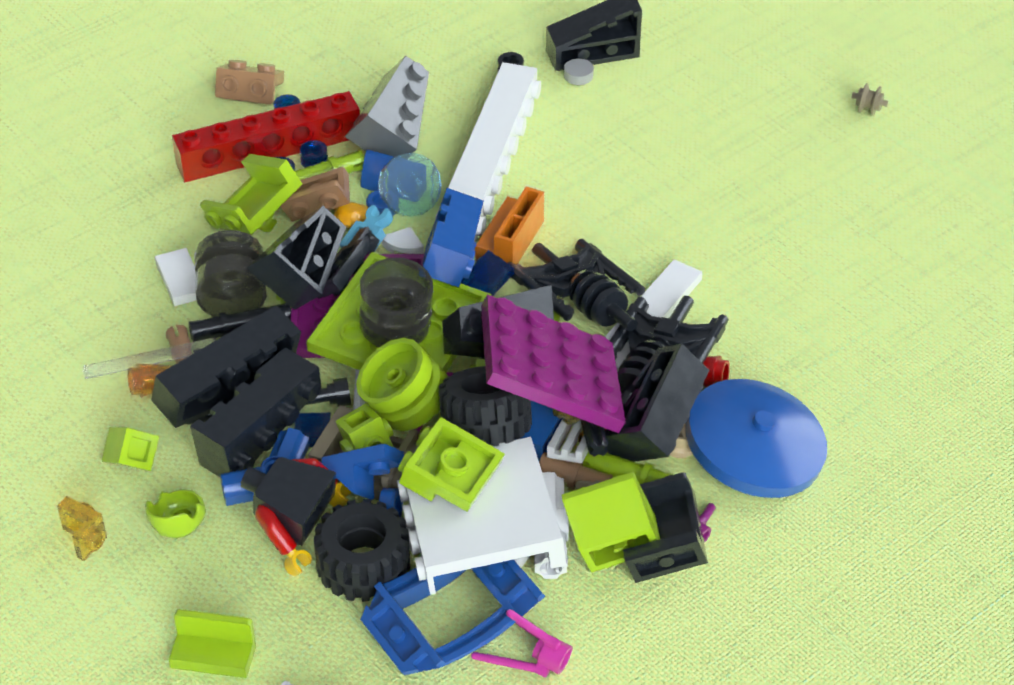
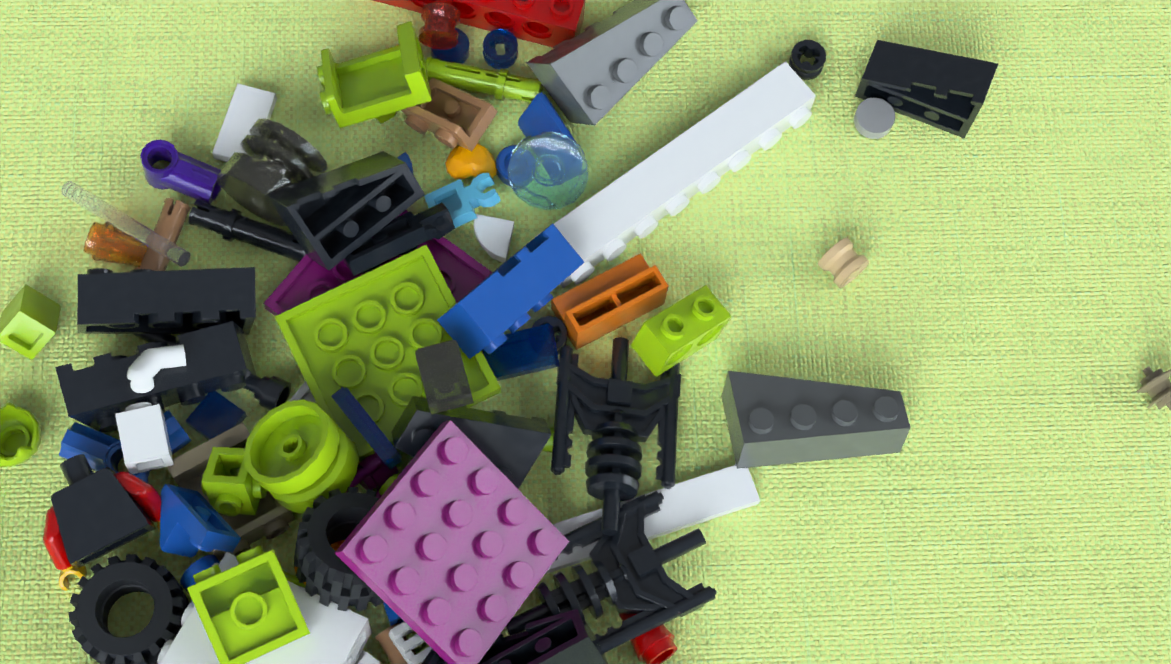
camera: 30 degrees right, 25 degrees up
(150, 318) = (183, 173): none -> dark purple piece
(255, 386) = (150, 362): none -> white arm
(266, 146) = (439, 25): none -> clear red wheel
(285, 436) = (144, 437): none -> white brick
(395, 301) = (374, 325): clear smoke wheel -> none
(446, 353) = (367, 427): none -> clear blue tile
(456, 286) = (443, 376): none -> clear smoke slope
(571, 214) = (680, 330): none -> lime brick
(632, 139) = (843, 262): none -> tan wheel
(690, 215) = (808, 420): none -> dark grey wedge

